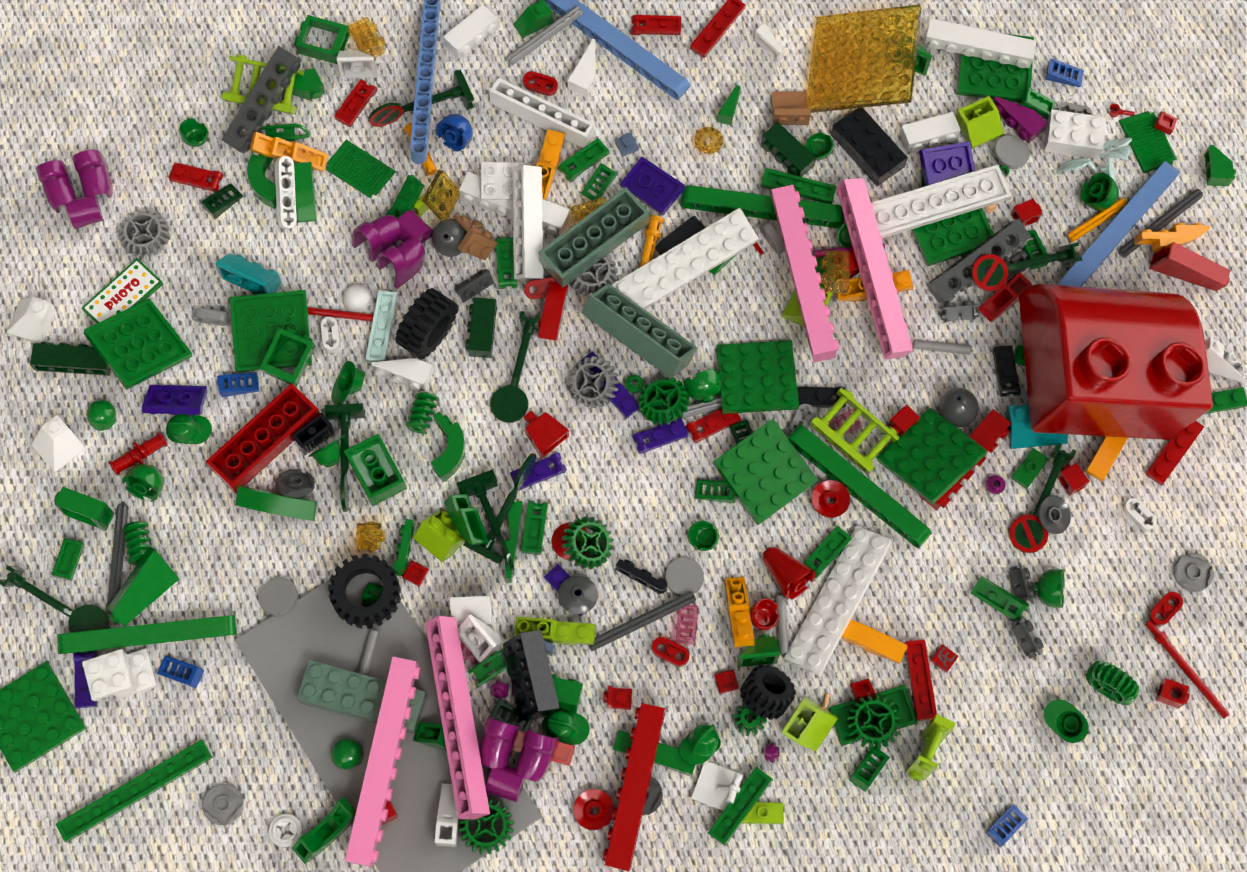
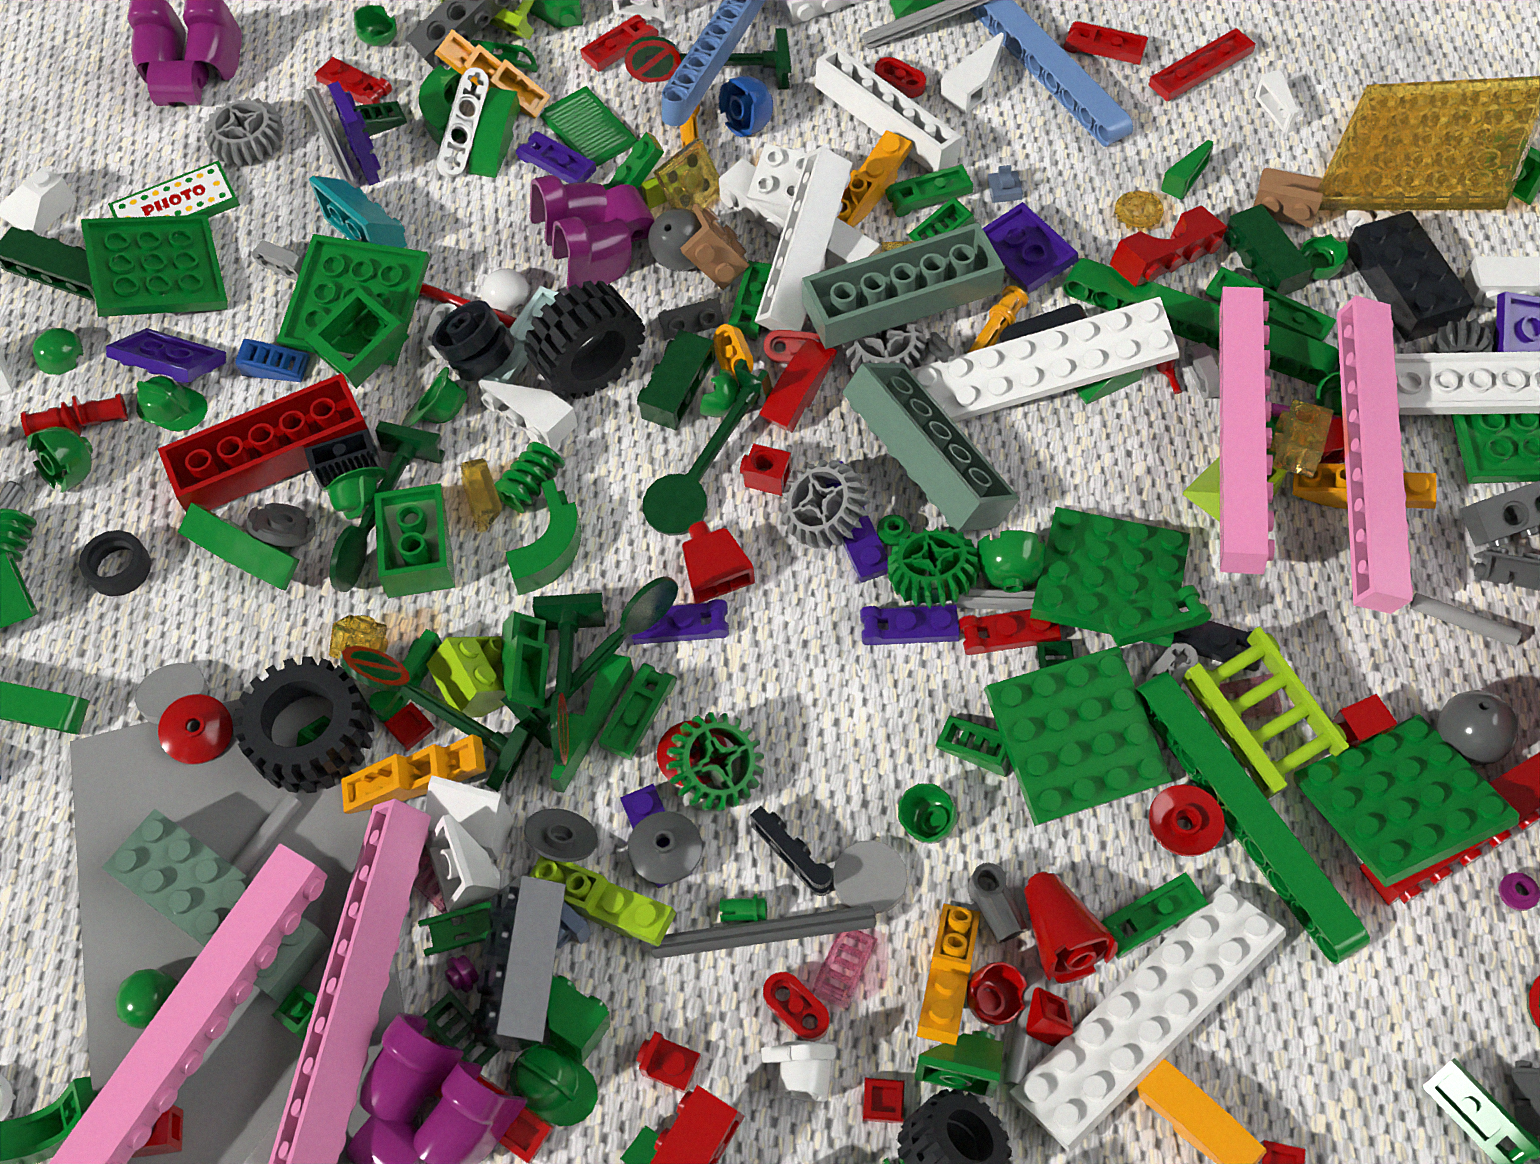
camera: 25 degrees right, 10 degrees down
(197, 523) = (100, 548): none -> black tyre
(200, 221) = (330, 136): none -> light grey axle
(225, 221) = (353, 124): none -> dark purple plate
(296, 619) = (207, 741): none -> red dish
(350, 199) = (556, 158): none -> dark purple plate
(357, 339) = (473, 340): none -> black wheel
(399, 431) = (480, 493): none -> clear yellow slope
(400, 552) = (388, 674): none -> dark green piece
(433, 599) = (409, 776): none -> light orange slope
(508, 302) = (731, 347): none -> light orange plate
(514, 331) = (723, 398): none -> green hair
(522, 605) = (560, 835): none -> dark grey dish
(559, 374) = (770, 480): none -> red brick
(624, 266) = (939, 347): none -> dark grey axle
(627, 612) = (743, 908): none -> green pin
(684, 680) = (802, 1069): none -> white piece
(723, 178) = (1146, 257): none -> red arch
(752, 571) = (997, 905): none -> dark grey piece
(788, 397) = (1156, 617): none -> green plate
(792, 617) = (1048, 1018): none -> red slope
(906, 182) = (1463, 337): none -> dark grey gear

